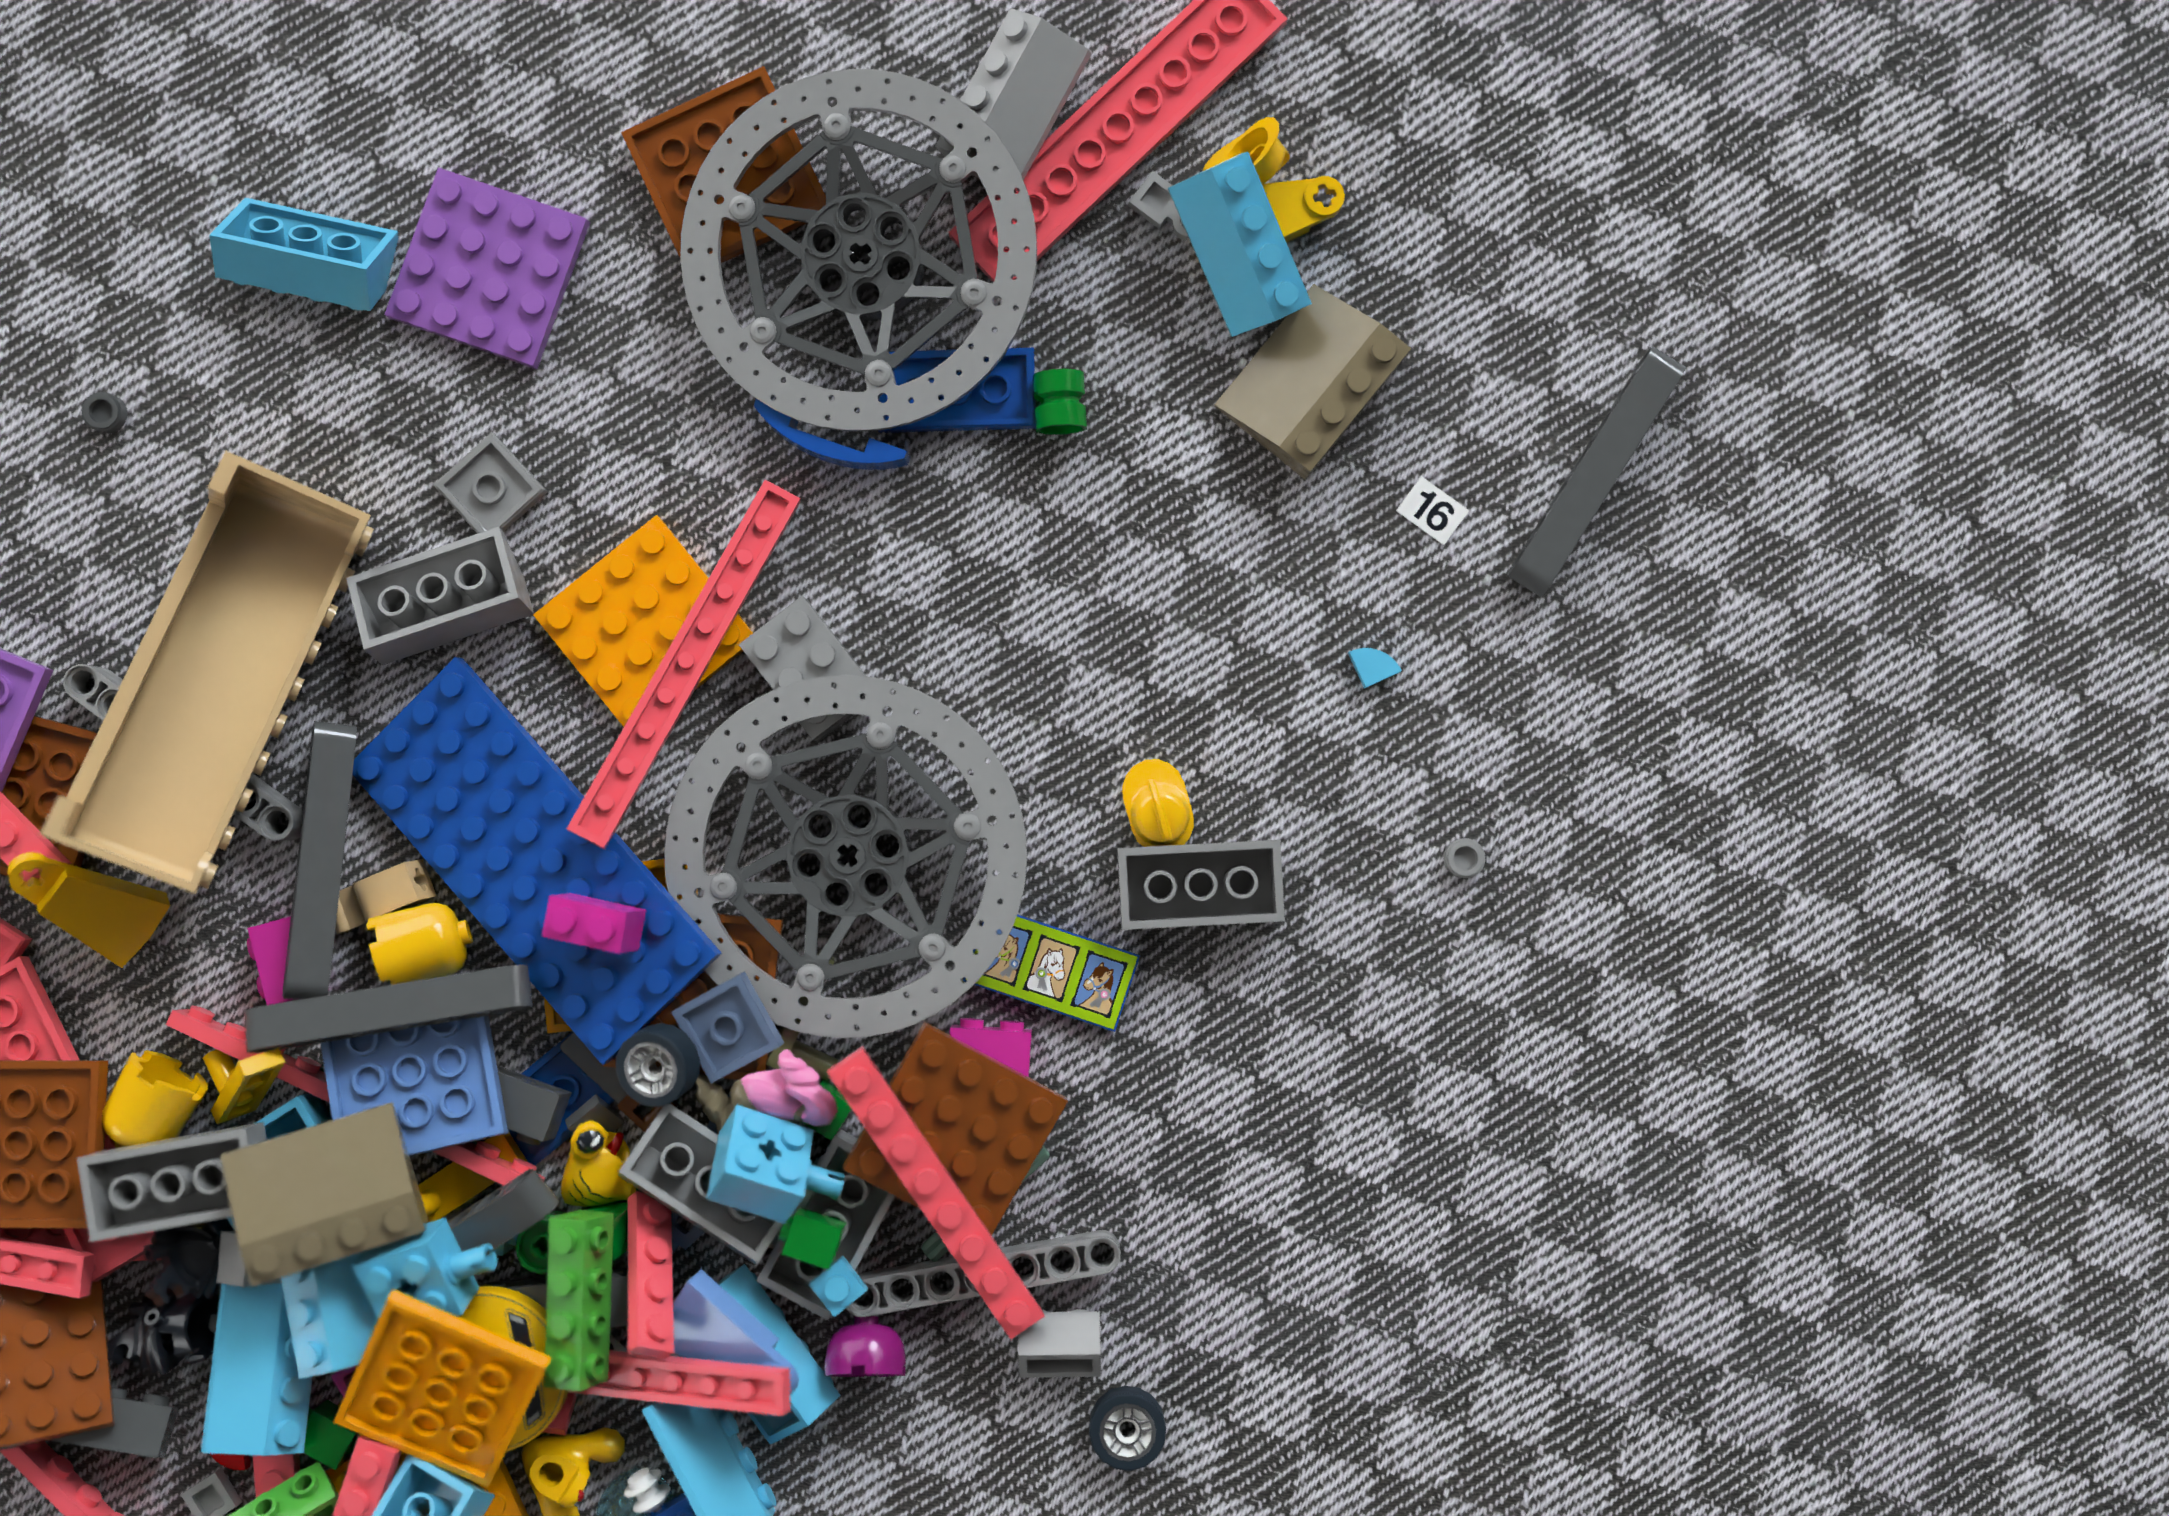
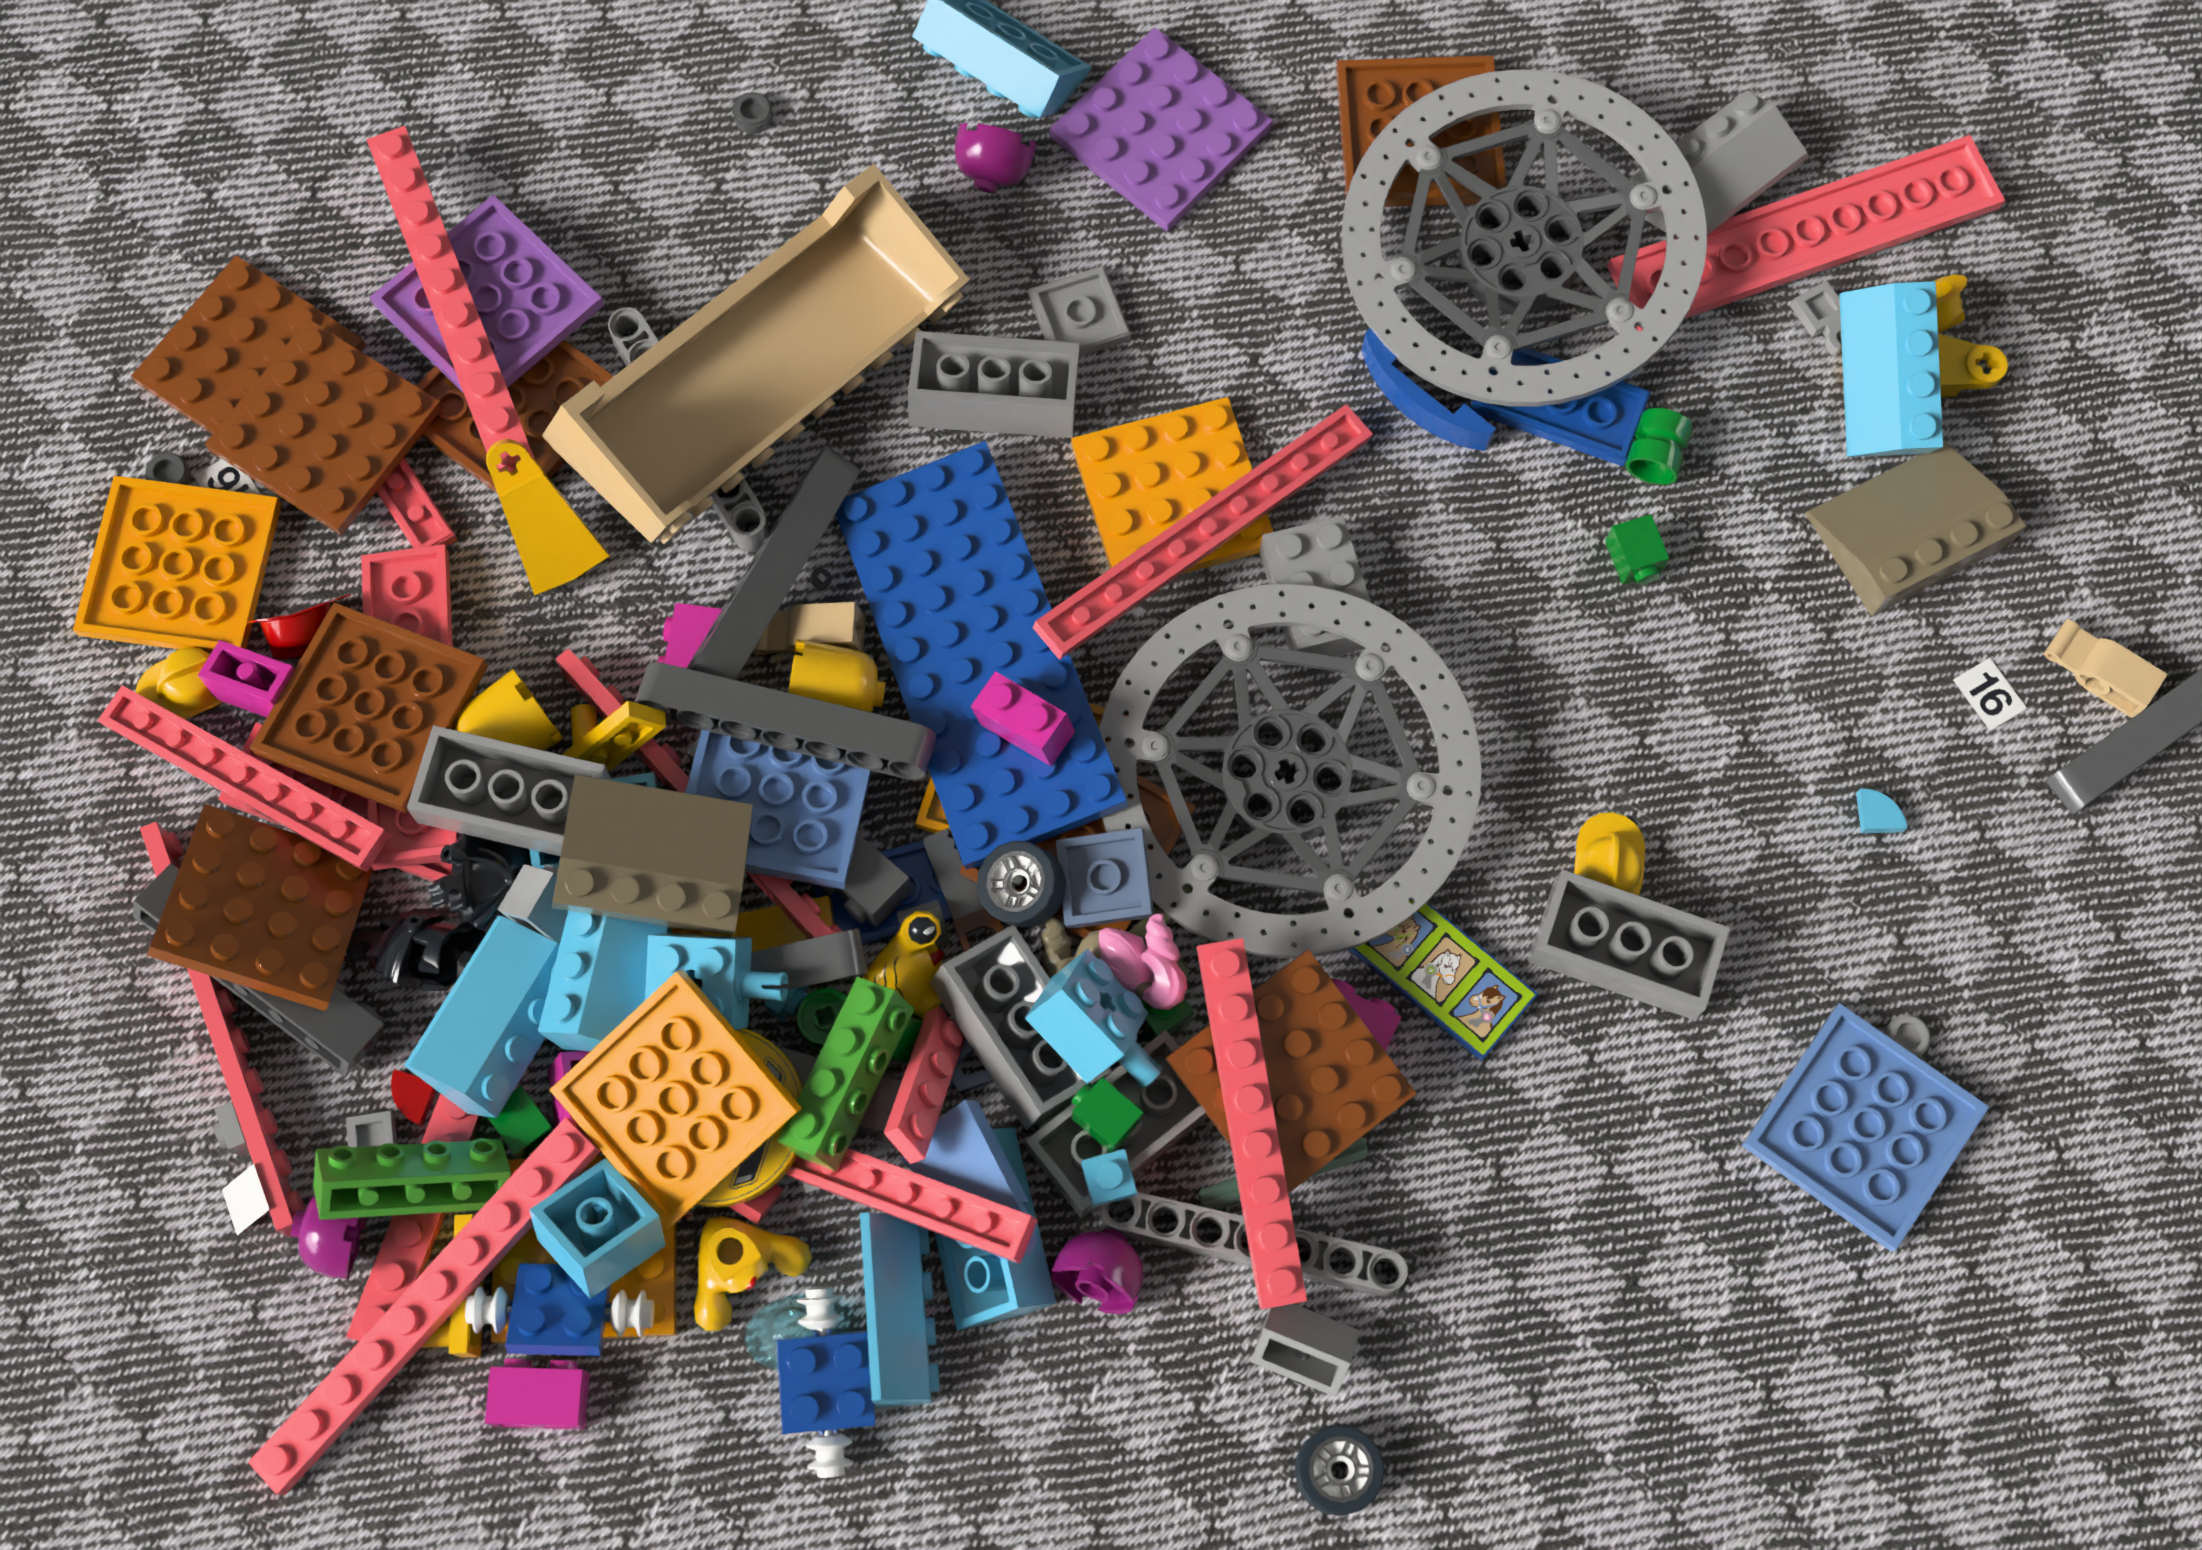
camera: 20 degrees right, 15 degrees down
(342, 371) = (992, 156): none -> magenta cylinder
(369, 839) = (820, 578): none -> black piece
(1077, 511) = (1637, 550): none -> green brick
(1455, 954) = (1865, 1127): none -> medium blue plate
(1524, 447) = (2106, 668): none -> tan piece

